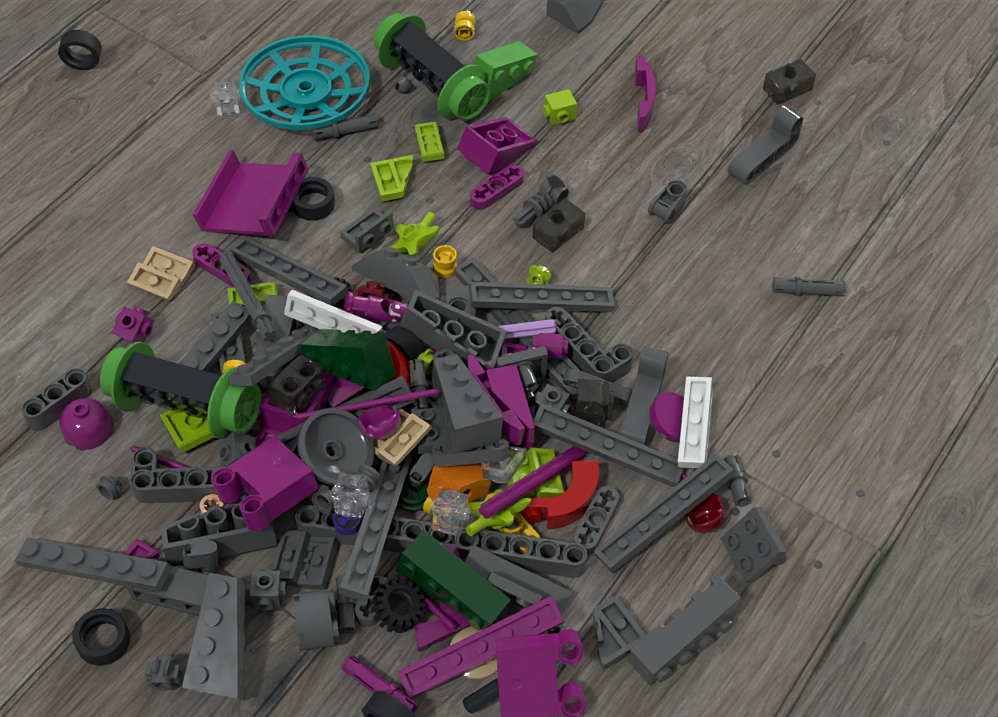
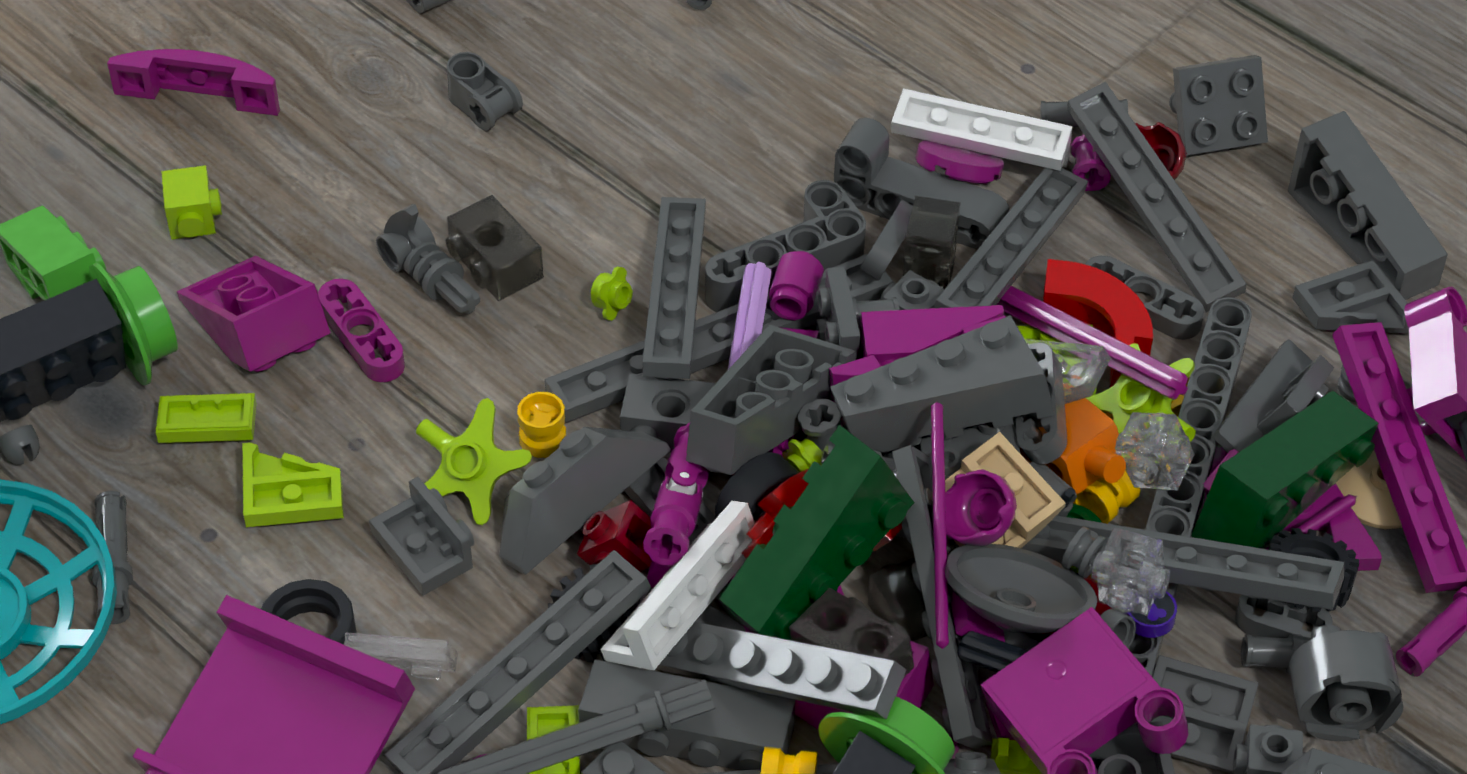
camera: 80 degrees left, 5 degrees down
(297, 229) = (423, 656): none -> clear plate

